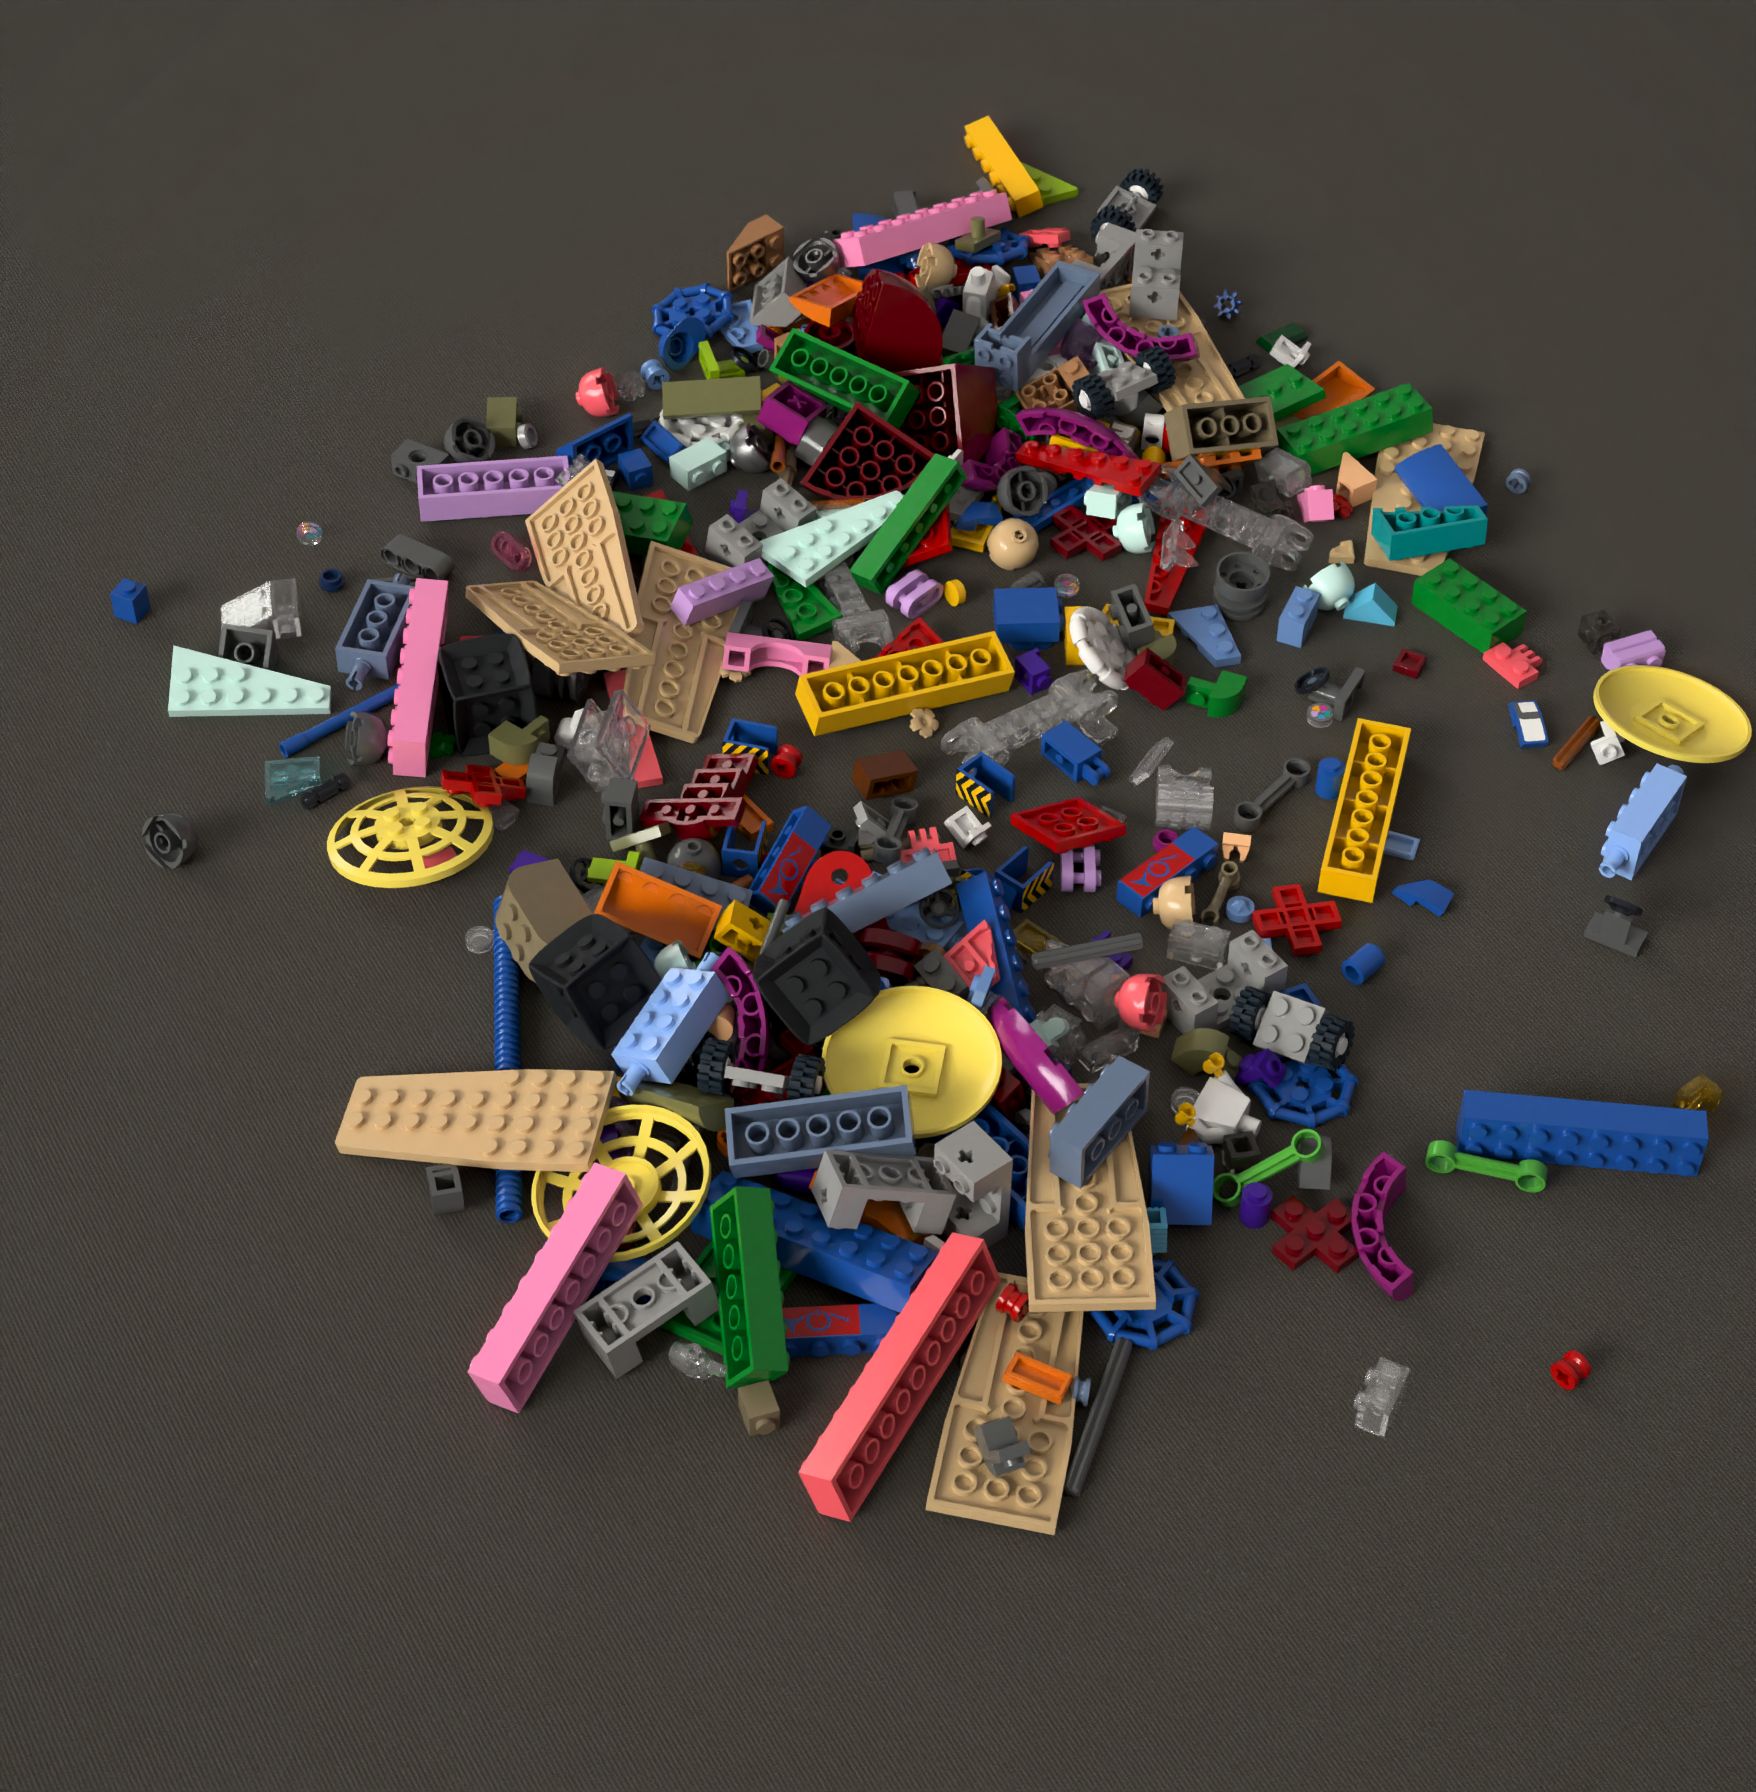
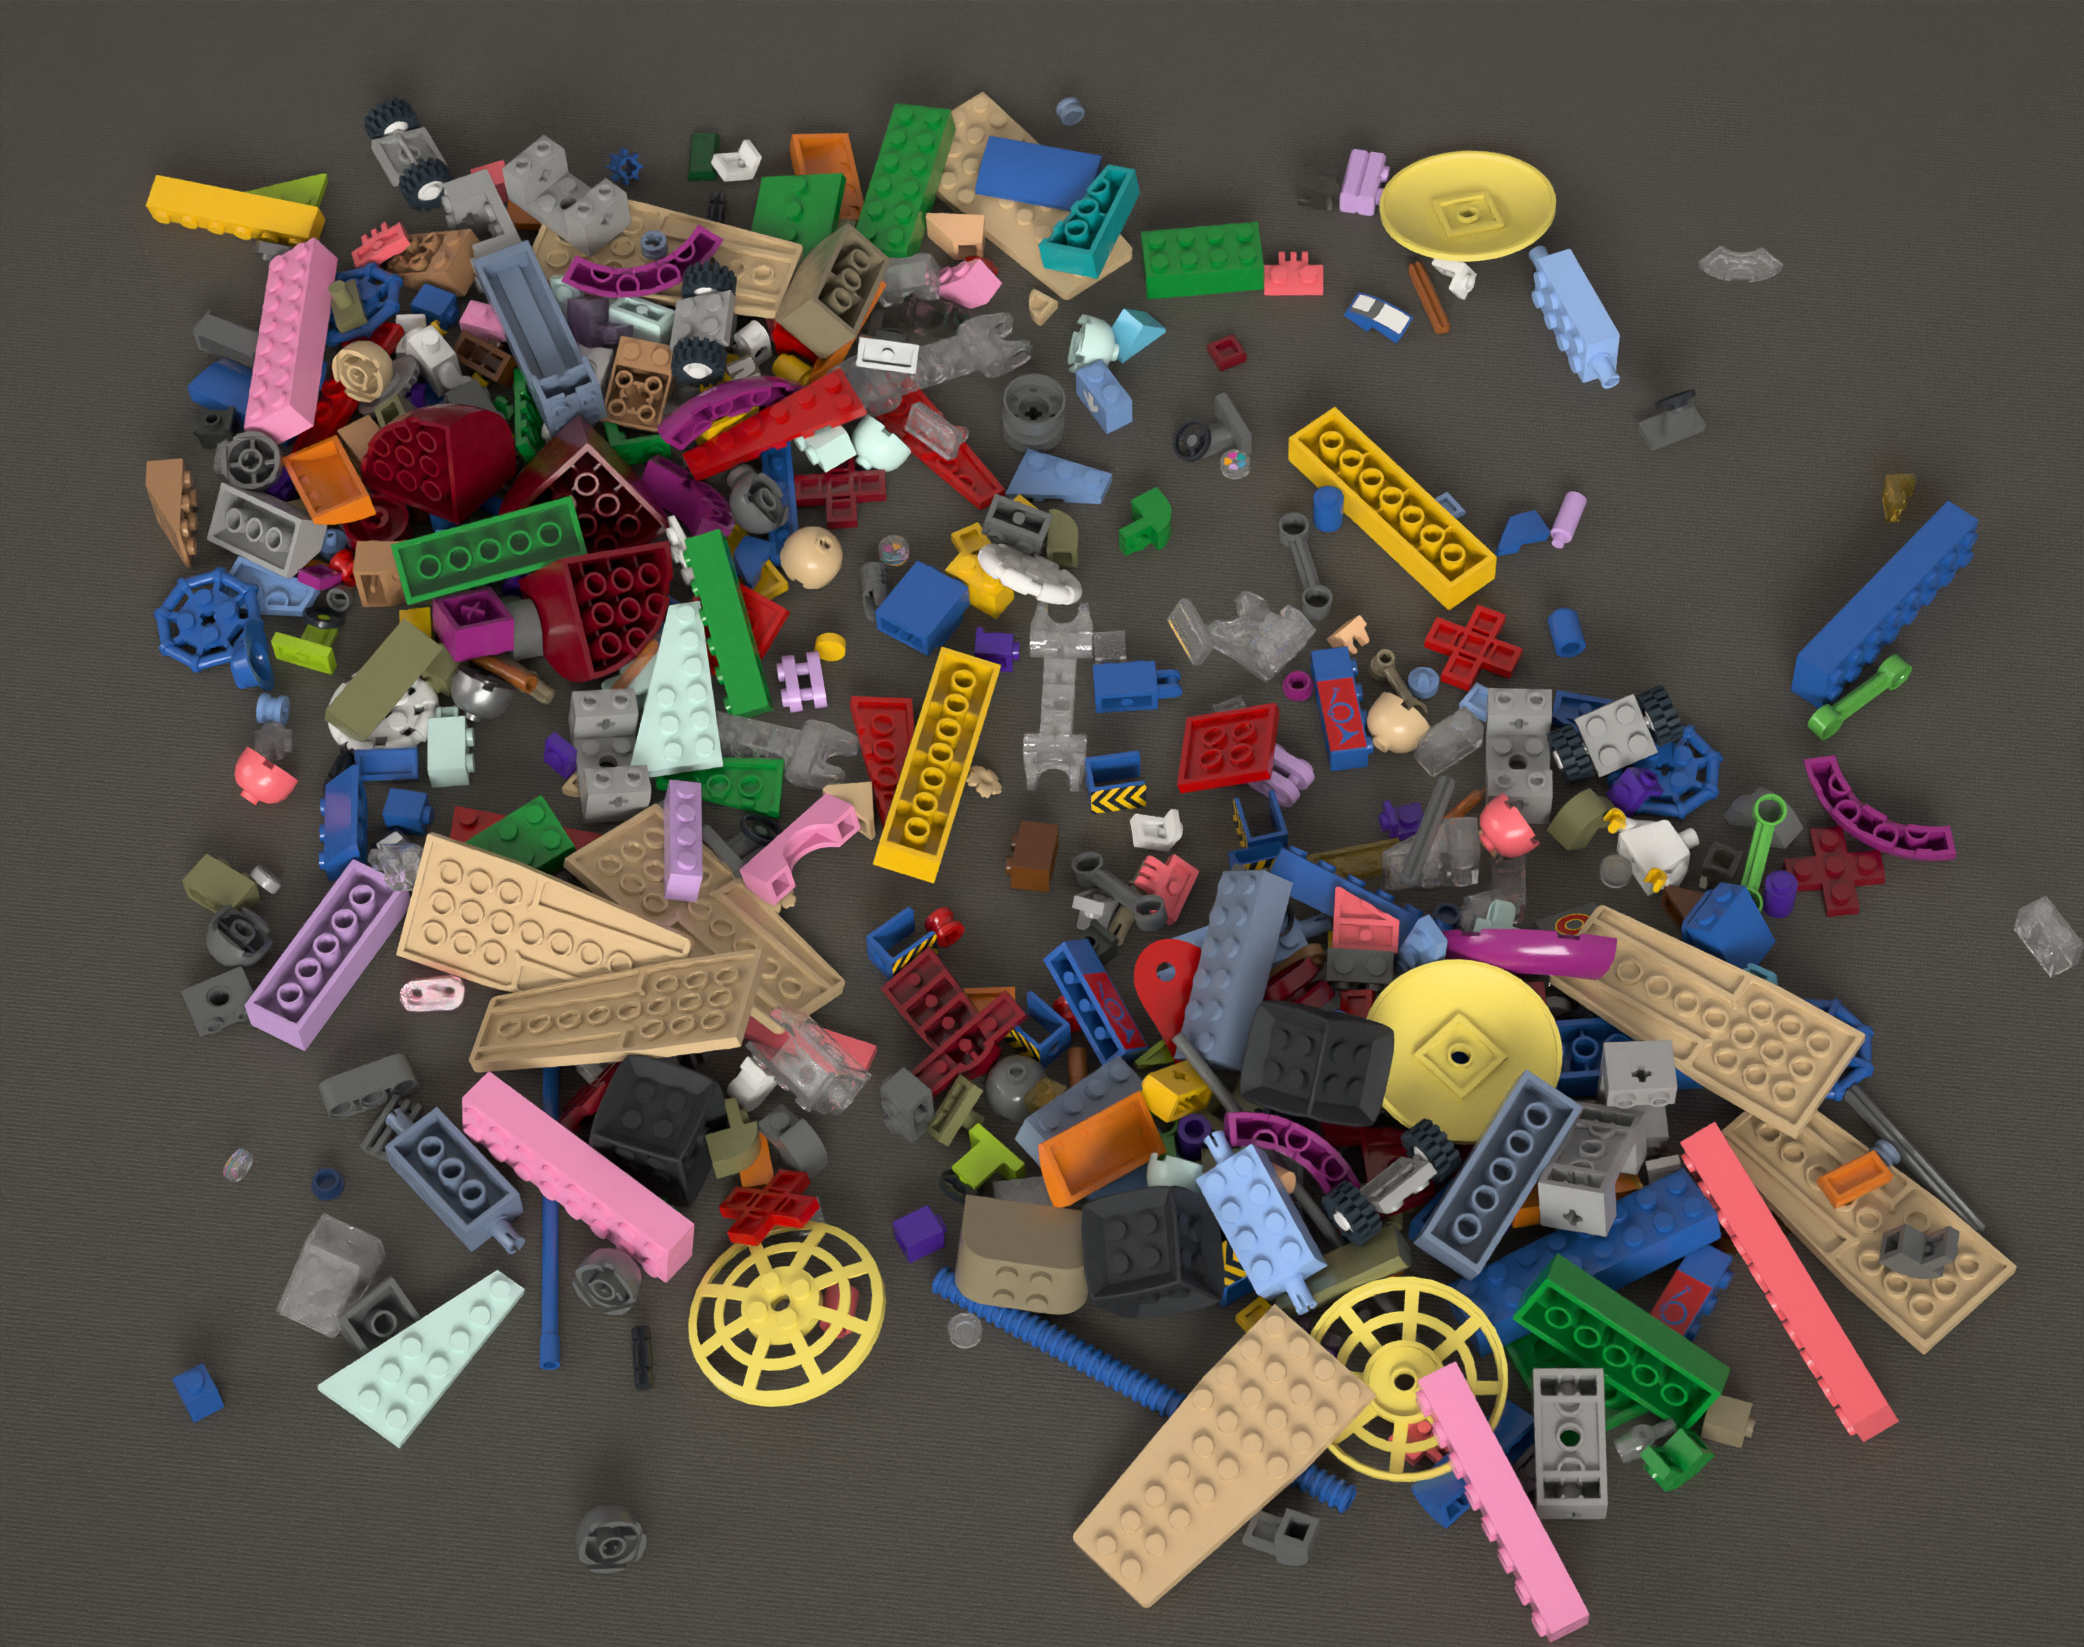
camera: 50 degrees left, 10 degrees up
(290, 777) = (598, 1380): clear light blue wing -> none
(693, 1393) = (1677, 1459): none -> green brick
(1013, 1303) = (1767, 1145): red wheel -> none
(1098, 1121) = (1654, 948): sand blue brick -> none
(1155, 679) = (1100, 560): dark red brick -> none
(1466, 915) = (1567, 518): none -> lavender cylinder

